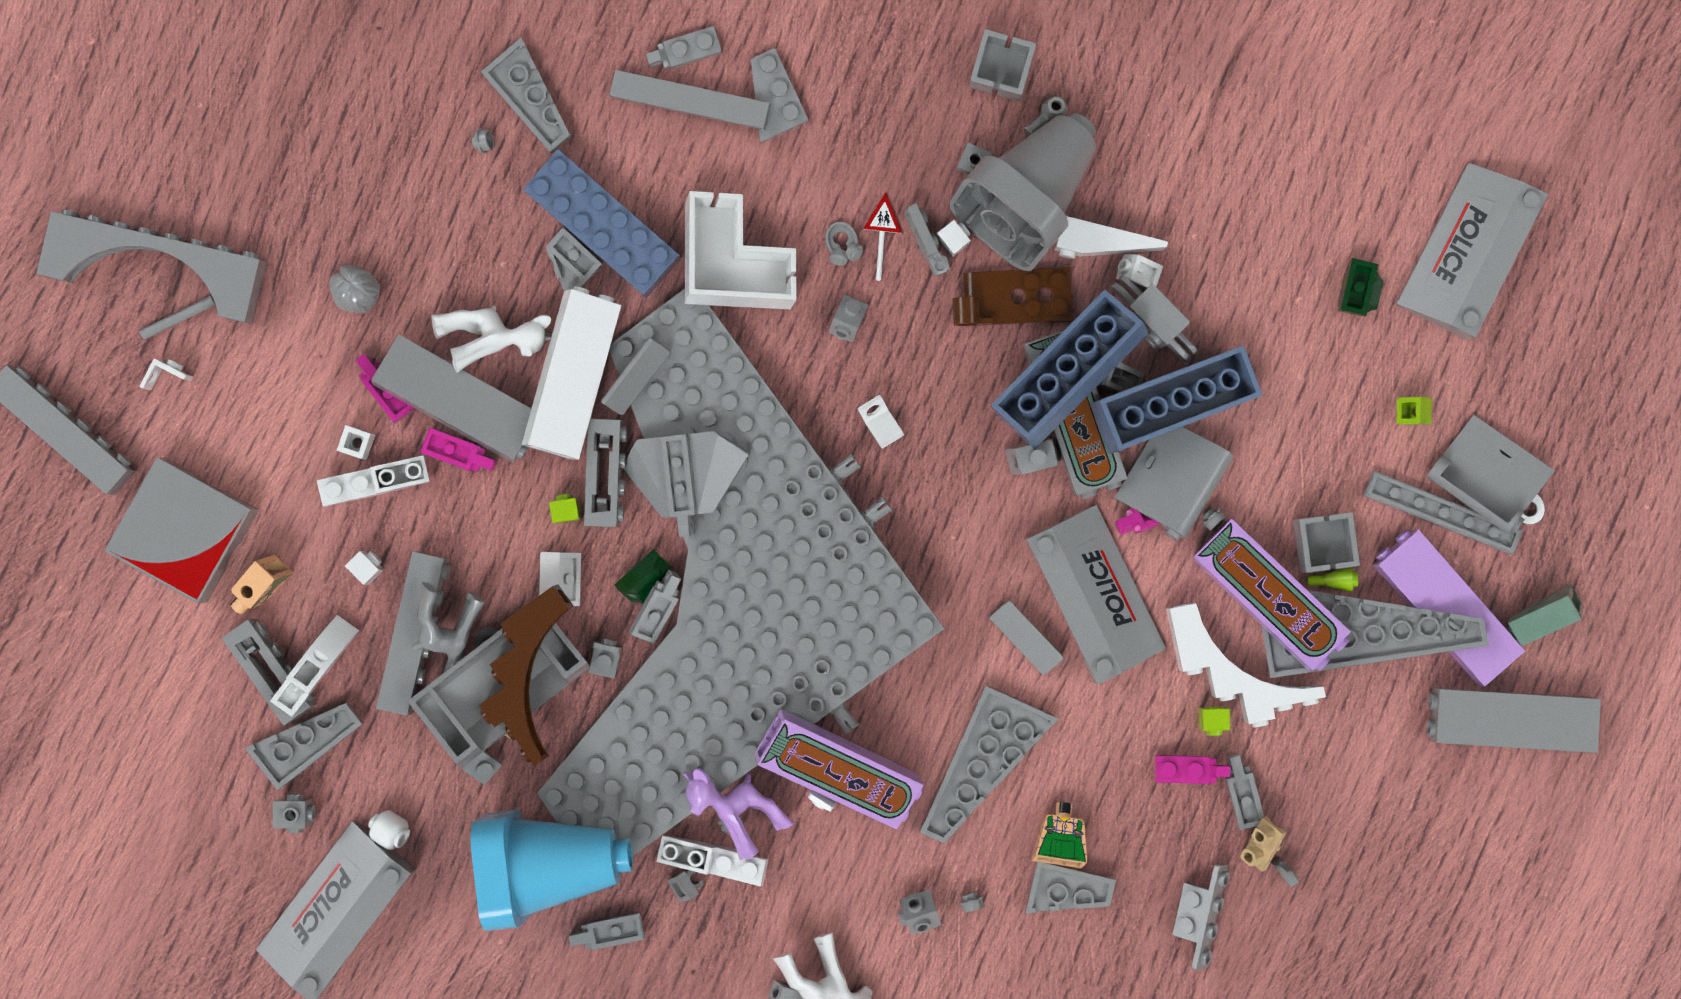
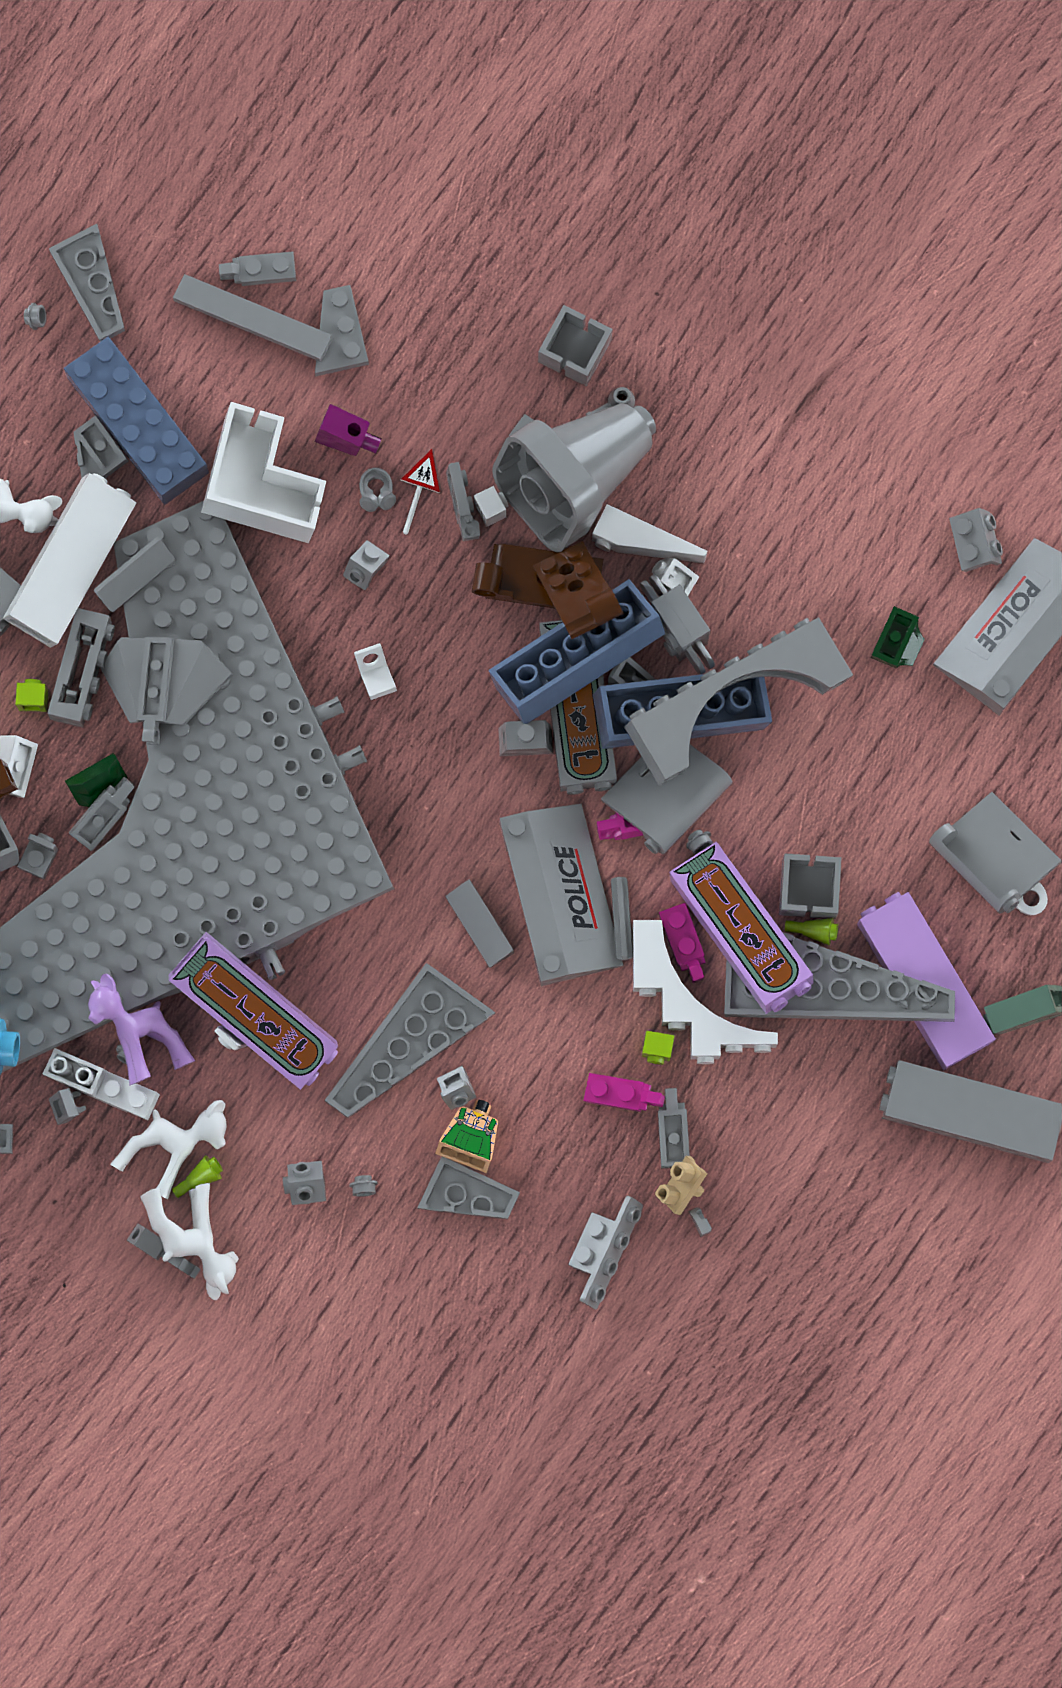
camera: 10 degrees right, 10 degrees down
(792, 195) = (336, 432): none -> magenta torso
(820, 879) = (179, 1142): none -> white animal
(824, 920) = (205, 1172): none -> lime cone
(1038, 796) = (456, 1088): none -> light grey bracket
(1072, 326) = (584, 608): none -> reddish brown hinge
(1156, 605) = (621, 918): none -> light grey axle
(1171, 429) = (801, 656): none -> light grey arch
(1217, 614) = (683, 940): none -> dark pink hinge
(1414, 411) = (928, 772): lime plate -> none
(1415, 176) = (976, 539): none -> light grey bracket
(1439, 512) = (938, 884): light grey tile -> none

